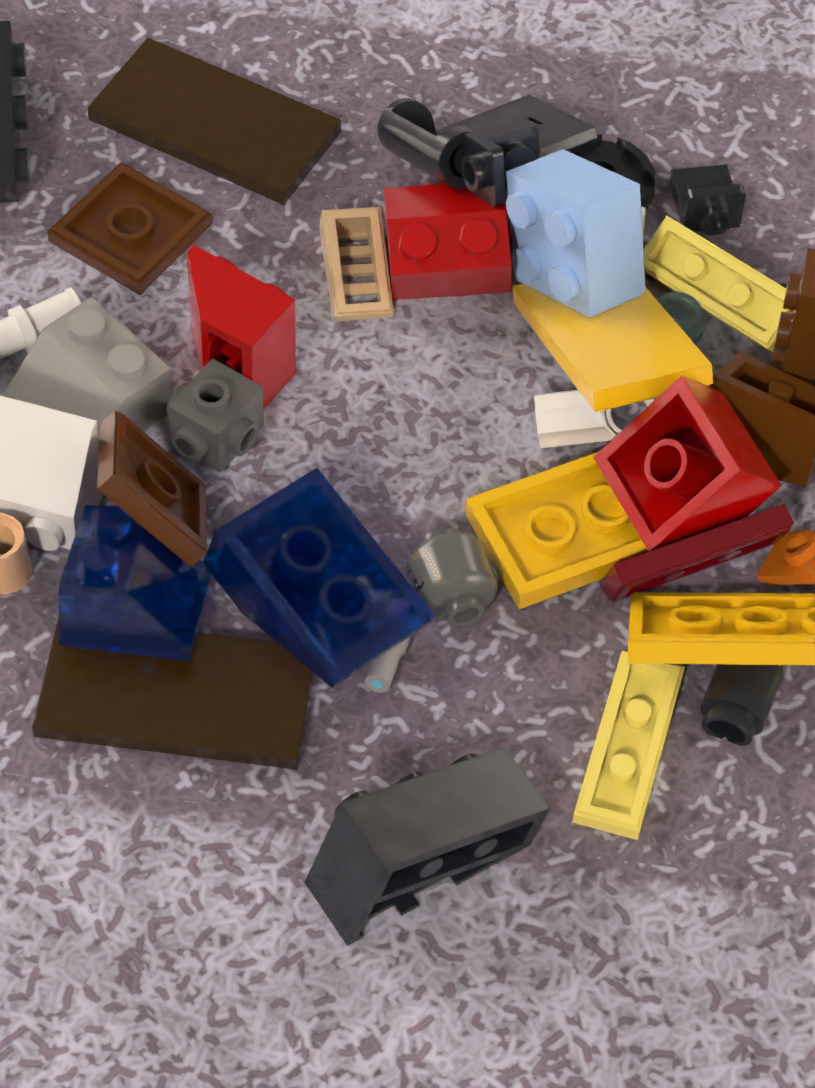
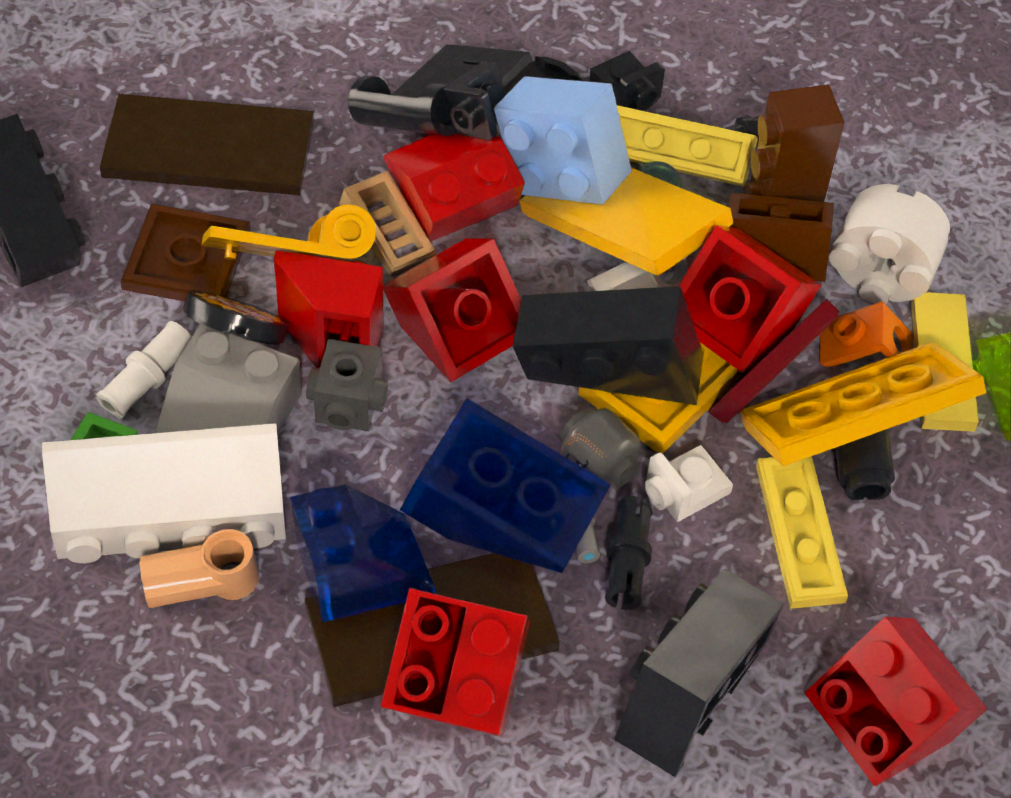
camera: 25 degrees left, 0 degrees up
(144, 308) = (237, 316): none -> black tile
(152, 487) = (338, 463): reddish brown tile -> none
(165, 736) = (456, 662): none -> red slope
(272, 252) = (339, 235): none -> yellow door
(382, 378) = (458, 306): none -> red slope
(422, 696) = (629, 553): none -> black pin
(514, 467) = (612, 342): none -> black wedge
(527, 647) = (685, 482): none -> white bracket
(627, 956) = (894, 699): none -> red slope

